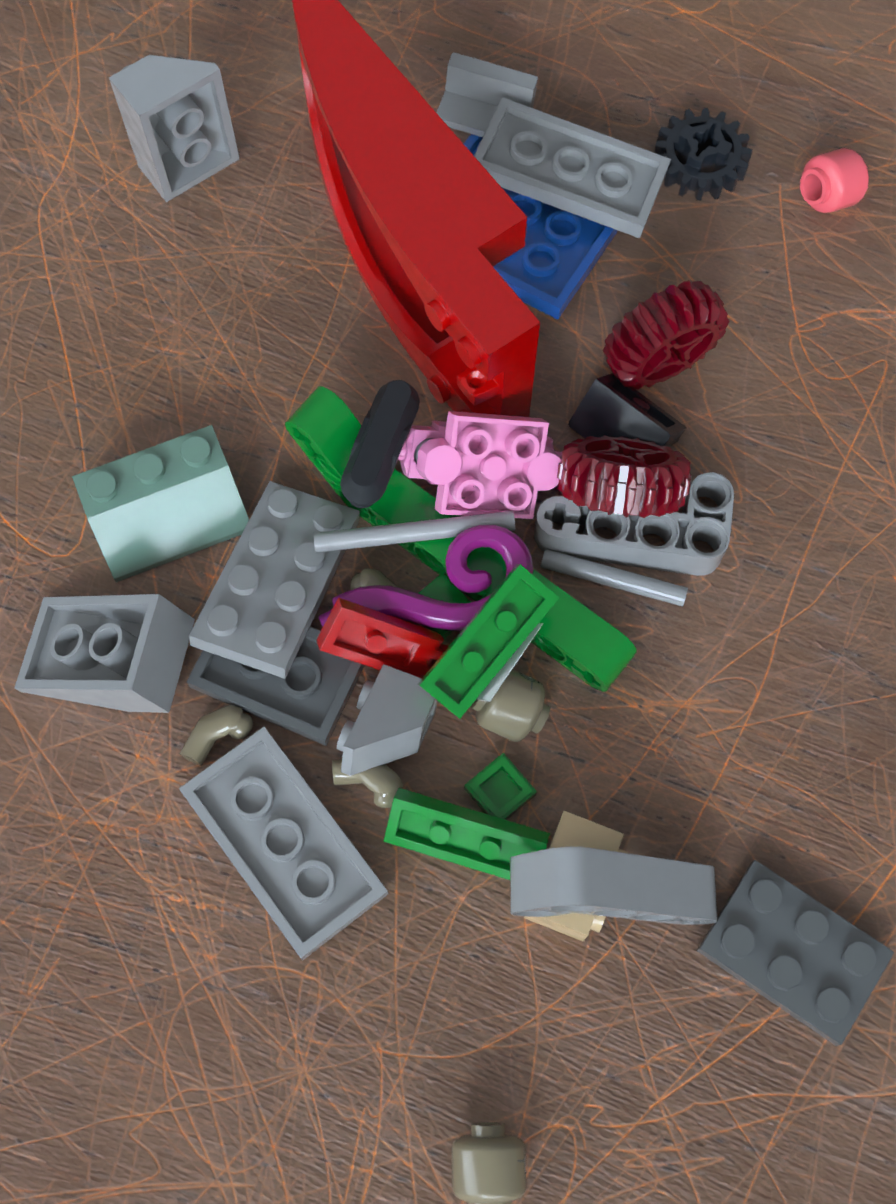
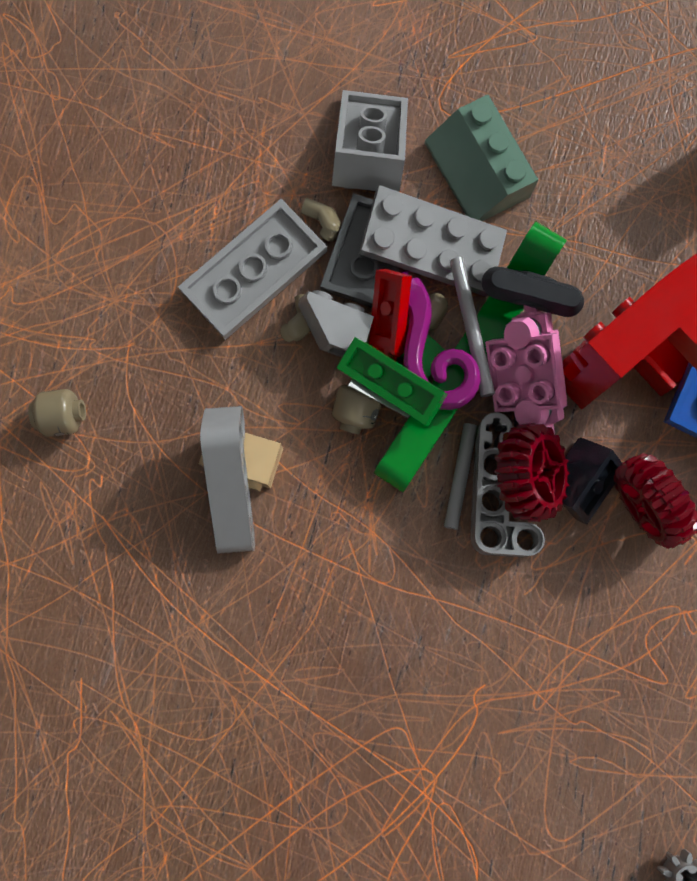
camera: 85 degrees right, 10 degrees up
(459, 833) = (264, 381): green plate -> none
(500, 788) = (299, 406): green tile -> none
(796, 952) = (203, 609): dark grey plate -> none

